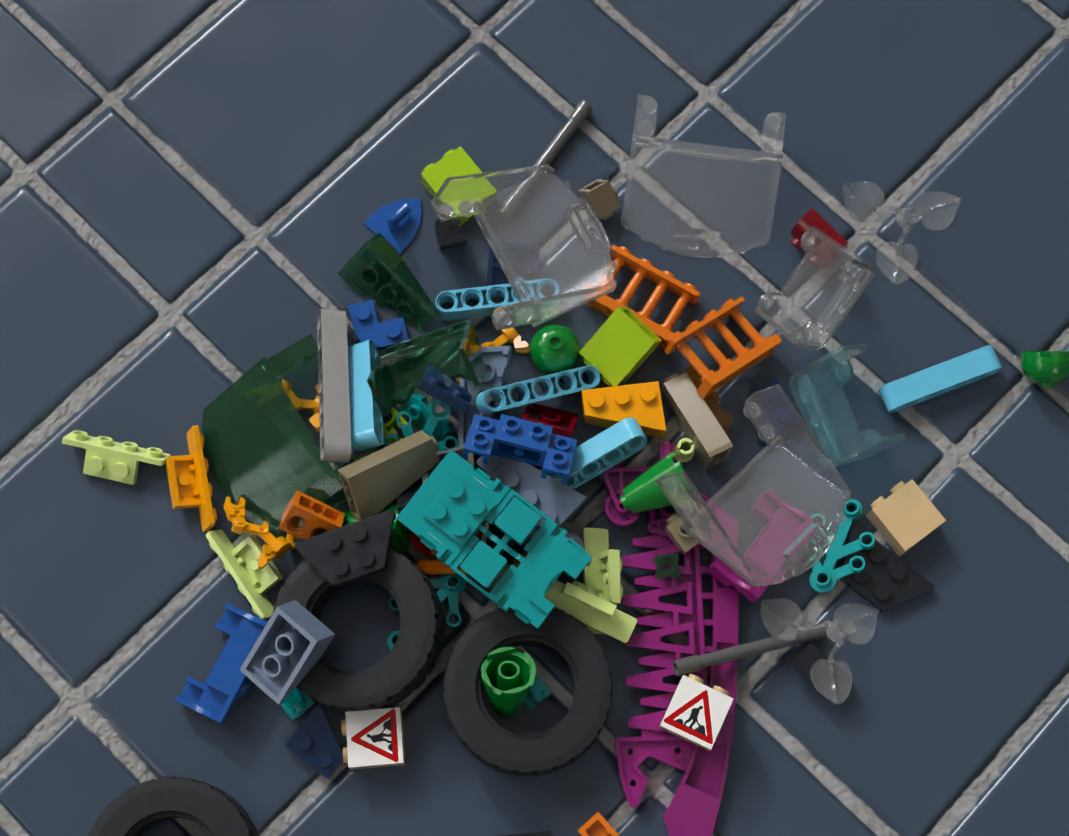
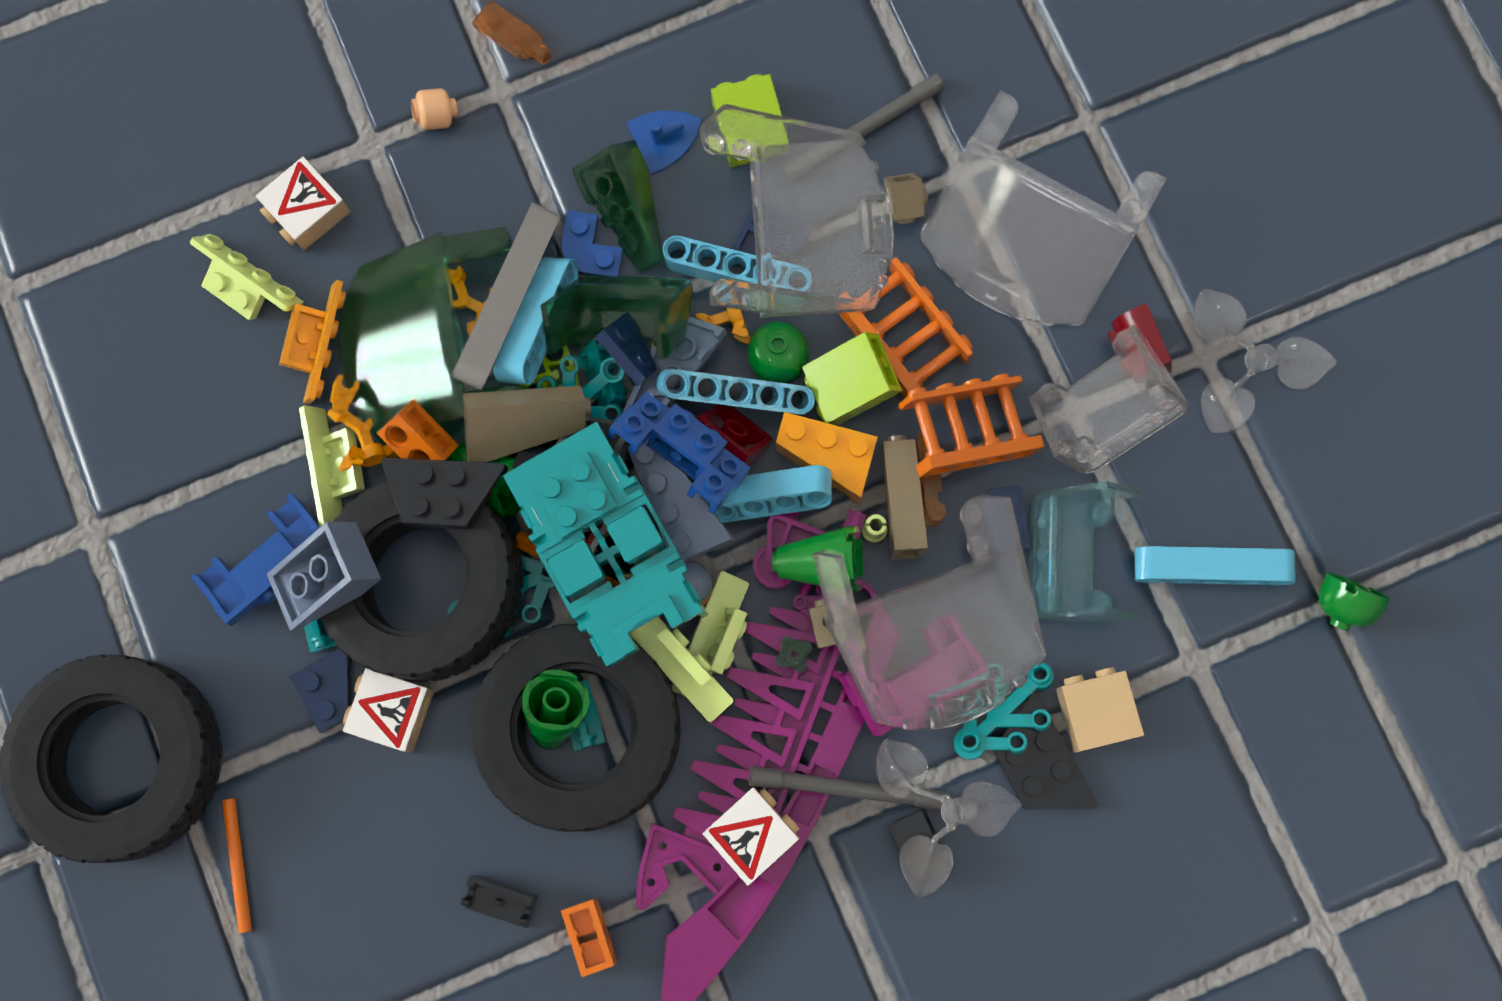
camera: 30 degrees right, 5 degrees up
(138, 379) = (302, 204): none -> piece
(211, 268) = (433, 109): none -> light nougat head
(246, 189) = (511, 33): none -> clear orange hinge
(447, 234) = (709, 173): black hinge -> none

